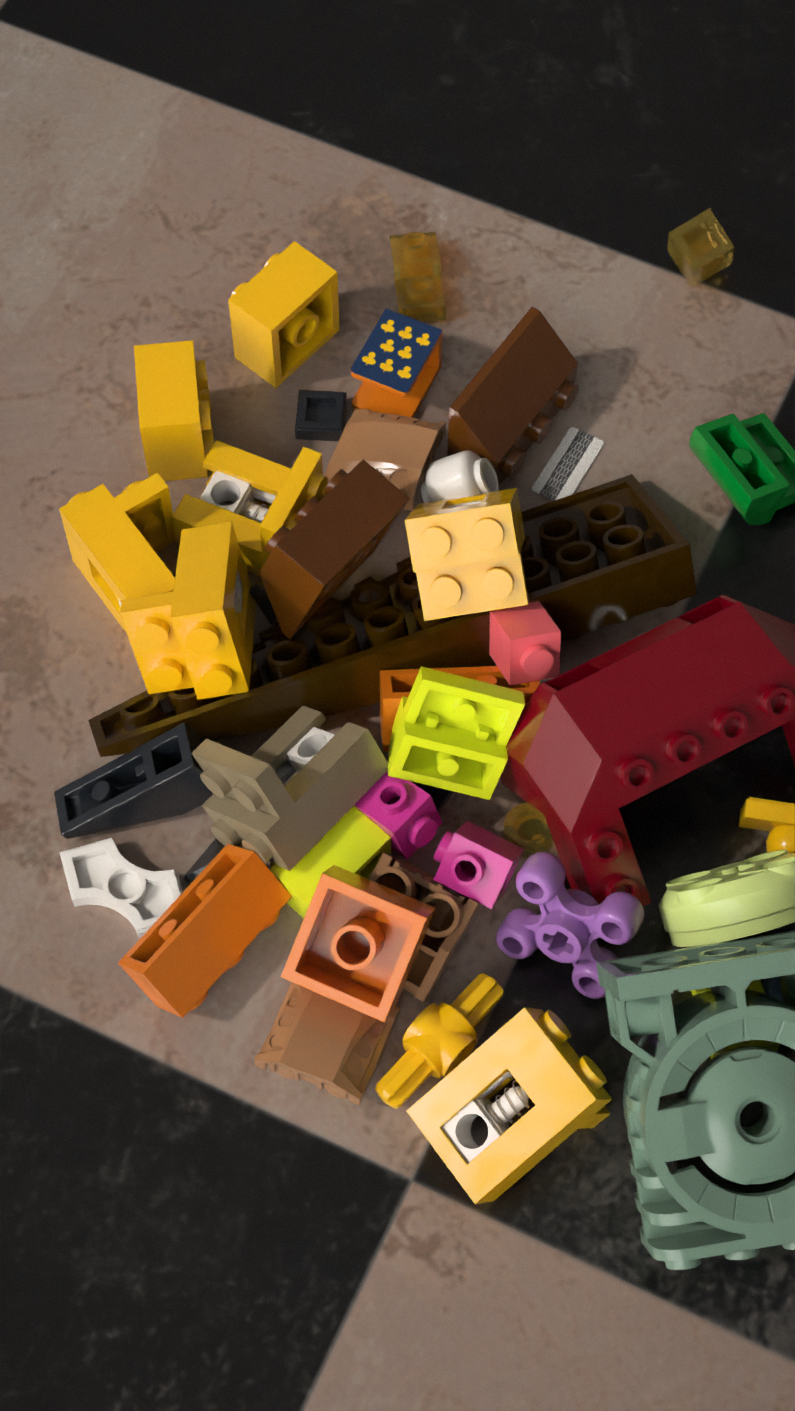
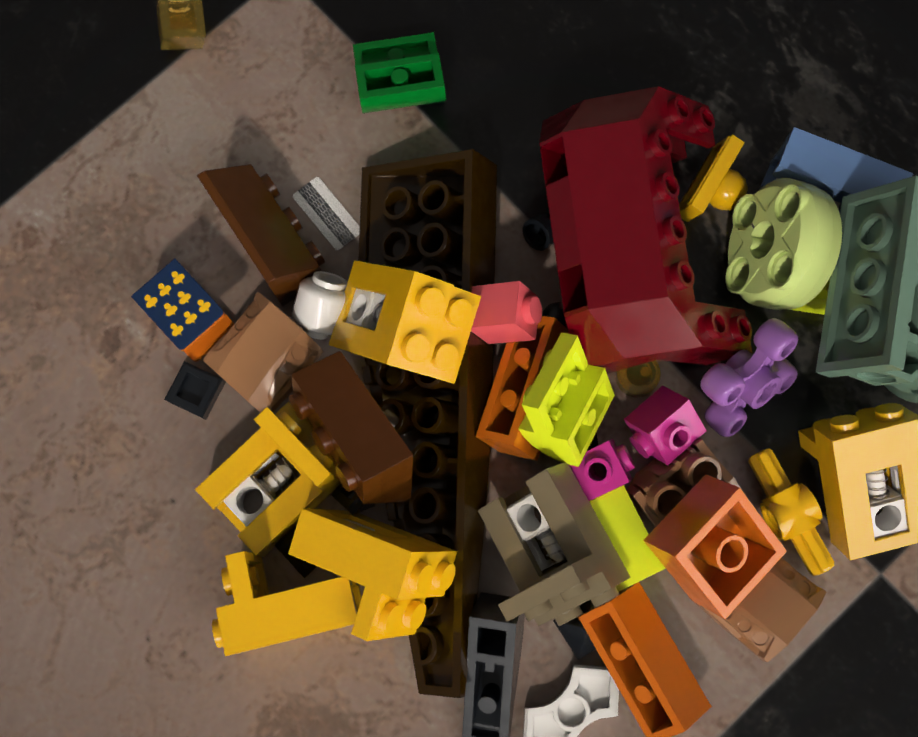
camera: 65 degrees left, 15 degrees up
(173, 409) = (139, 515): yellow brick -> none
(284, 313) = (89, 383): yellow brick -> none
(418, 276) = (94, 258): clear yellow slope -> none

